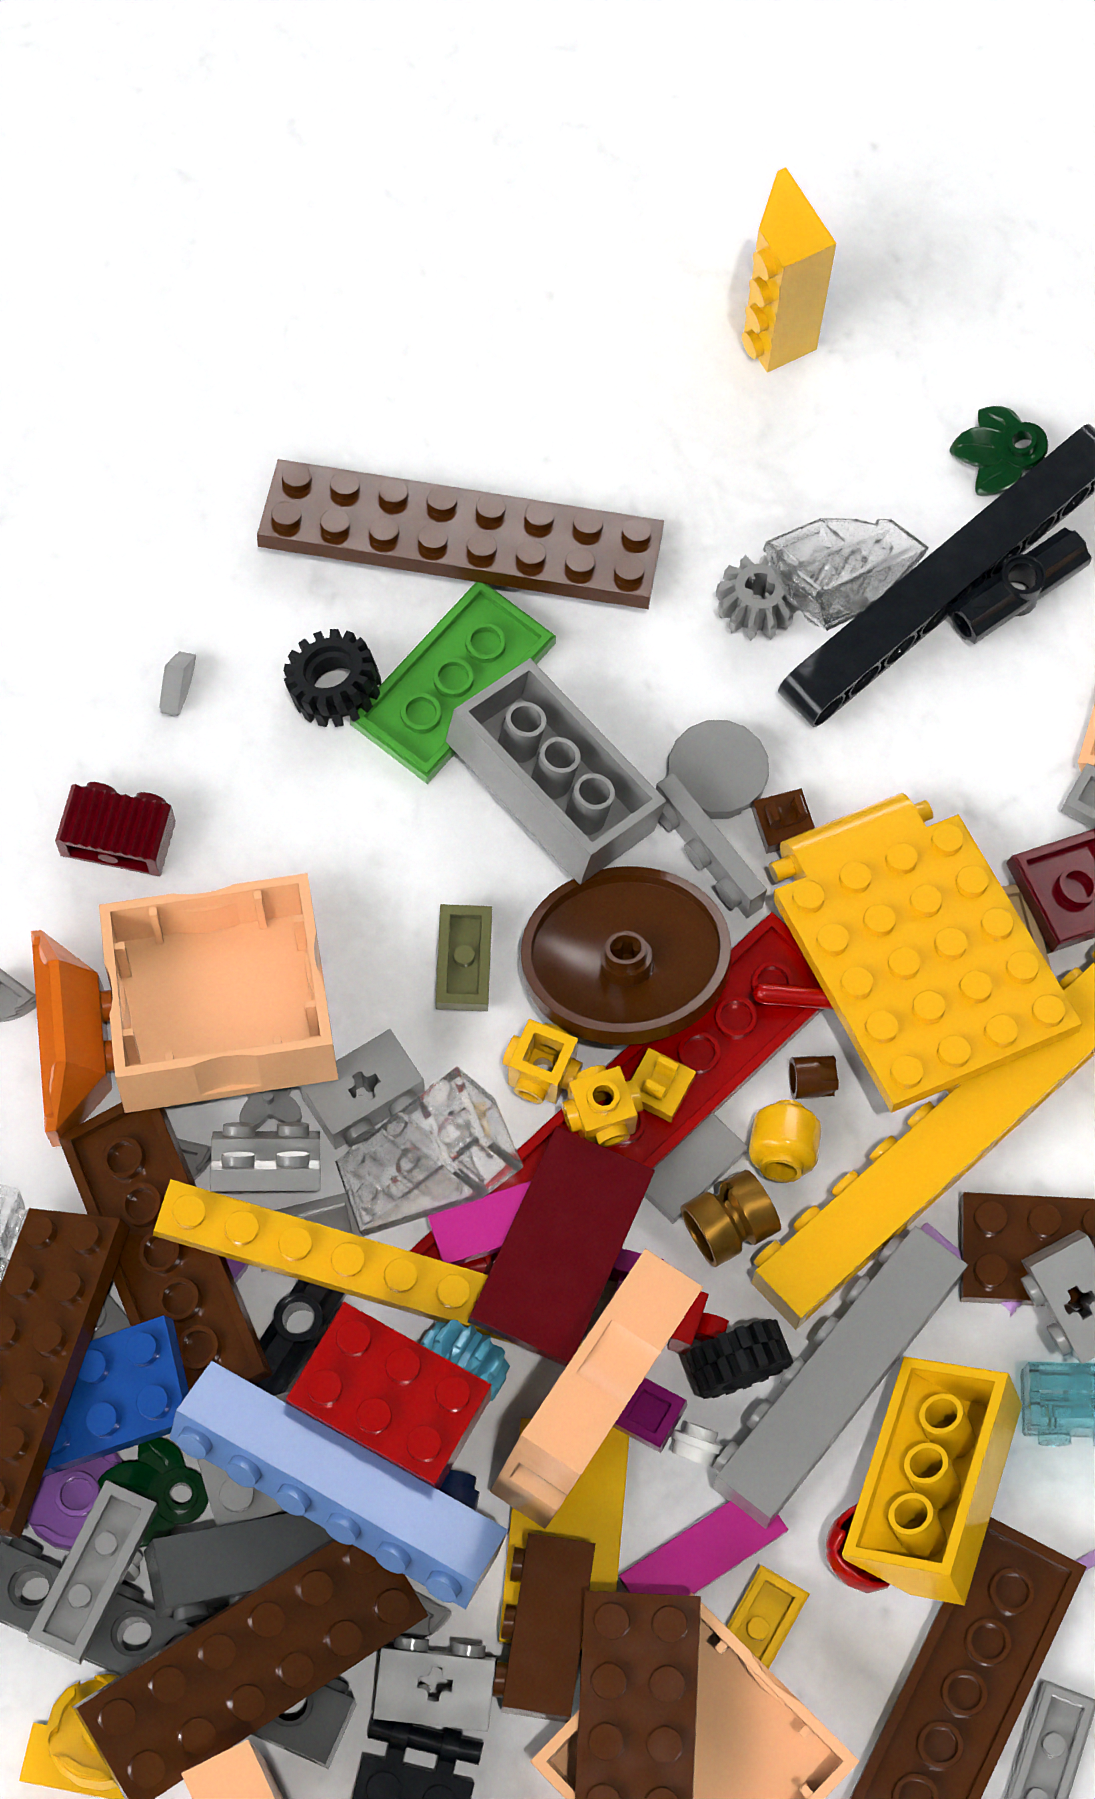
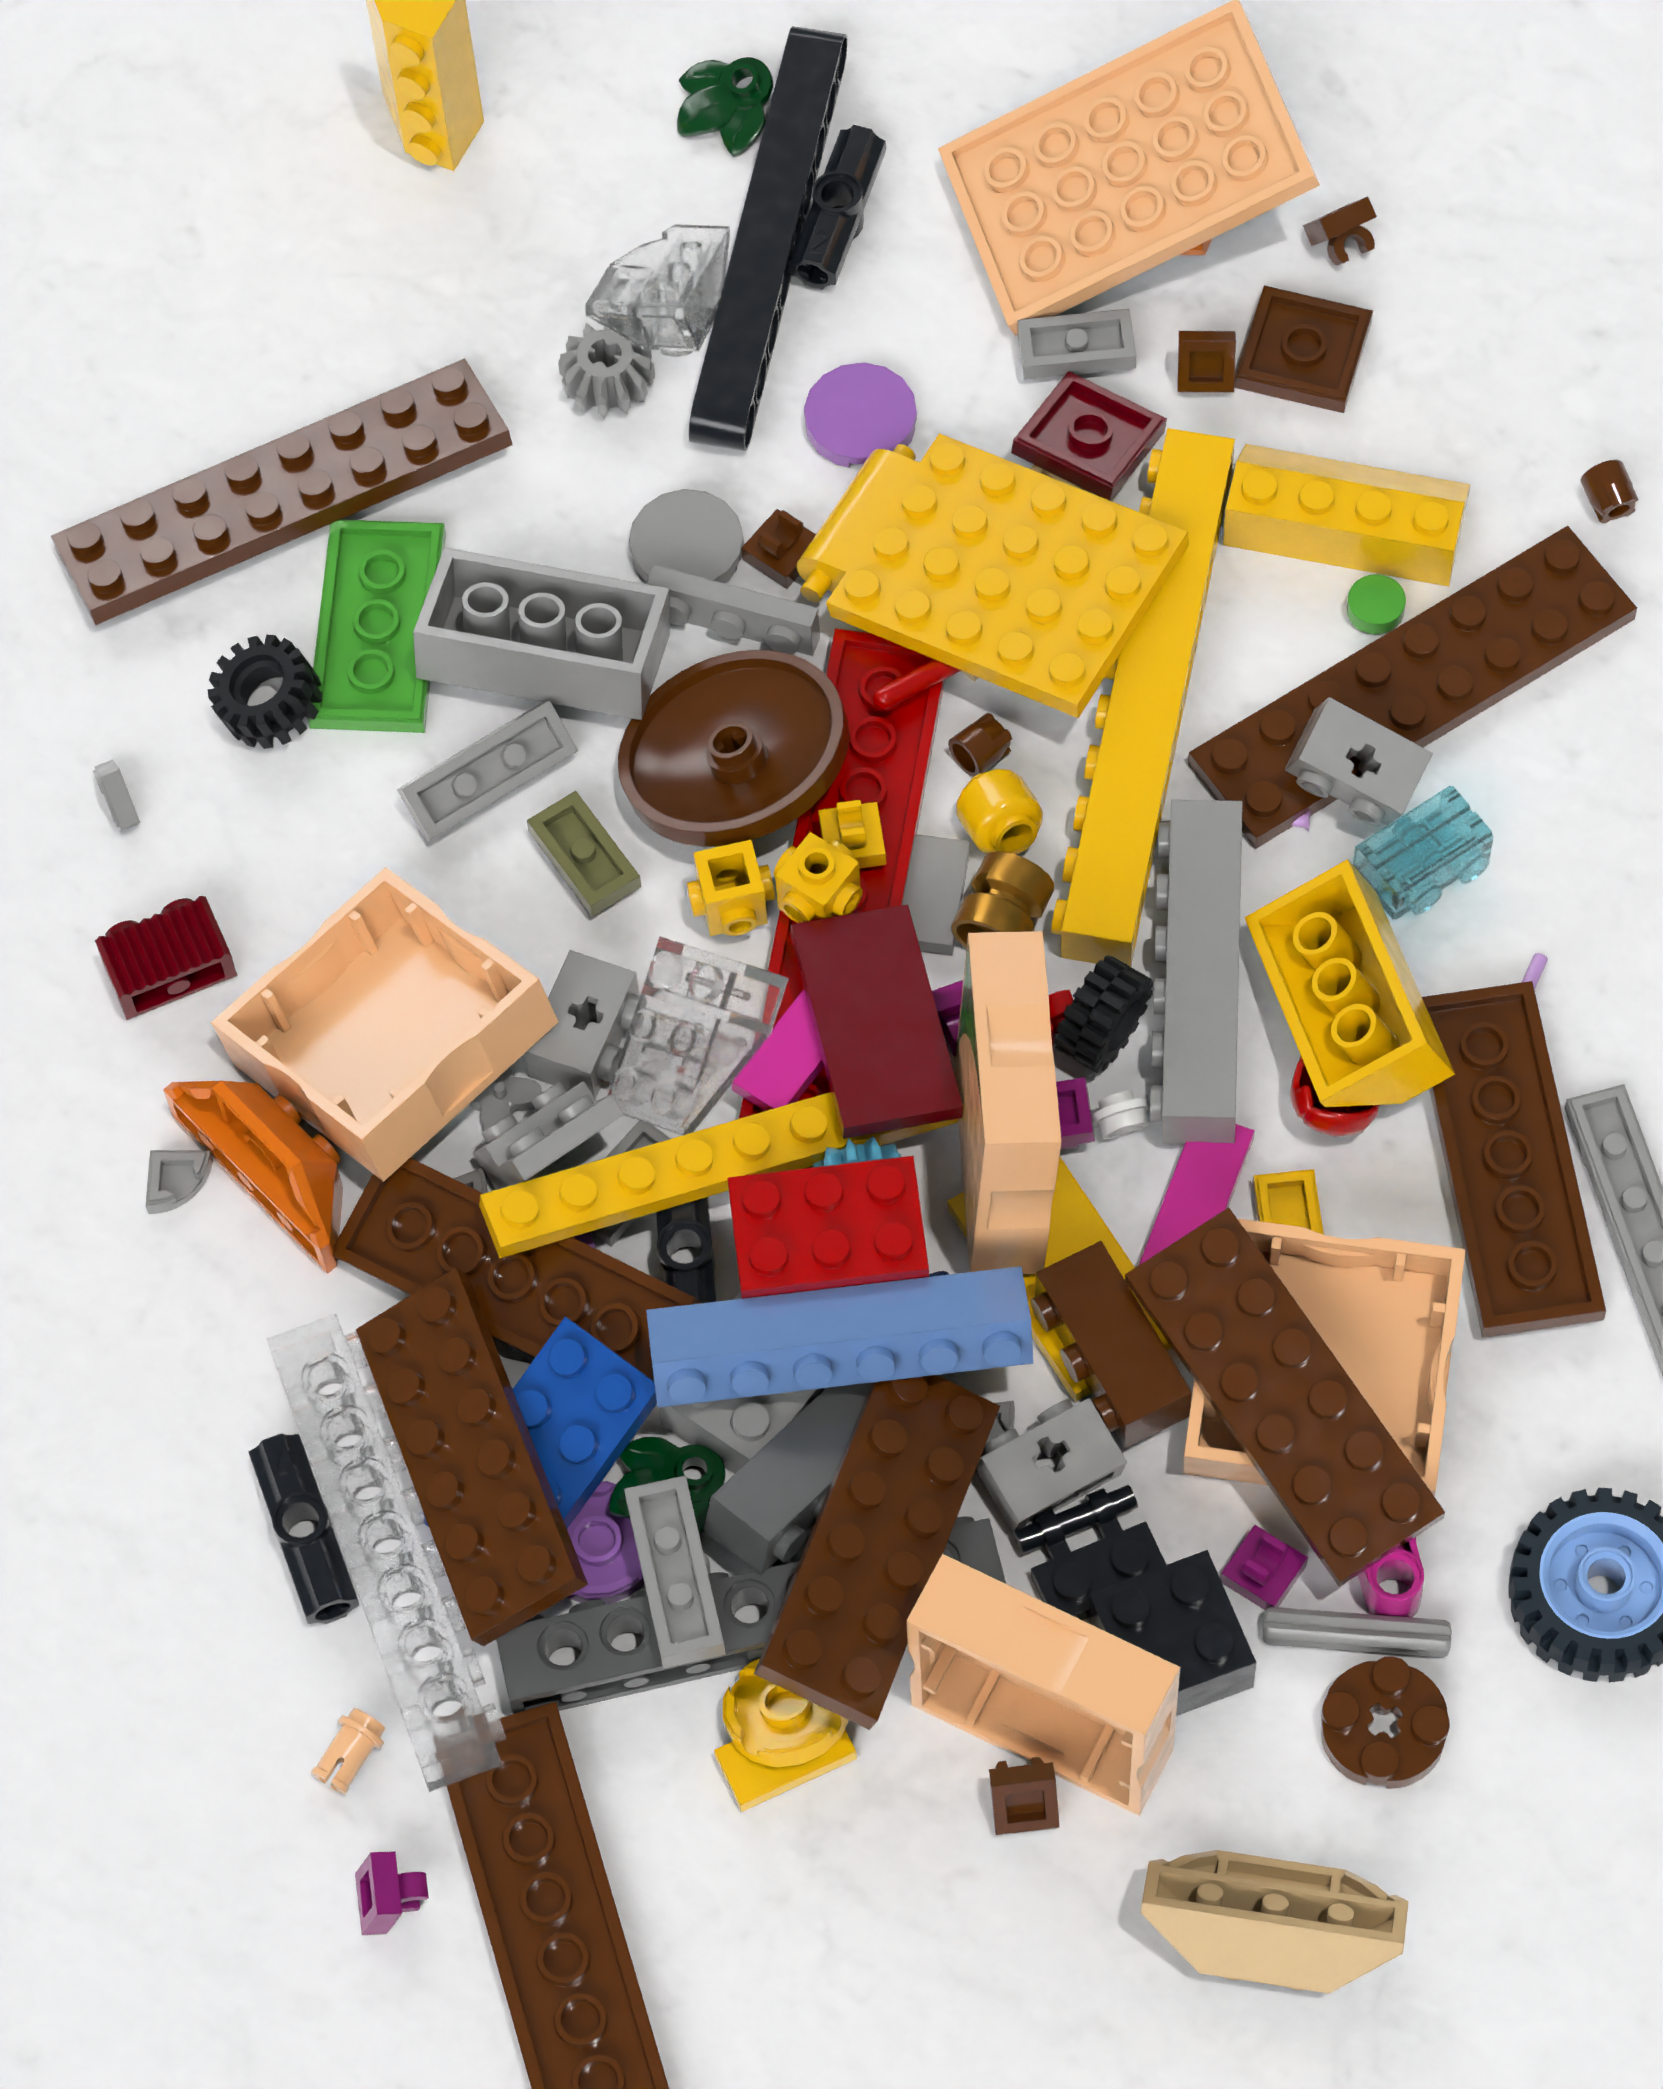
camera: 30 degrees left, 5 degrees down
(443, 846) = (487, 770): none -> light grey plate
(918, 755) = (858, 412): none -> medium lavender tile

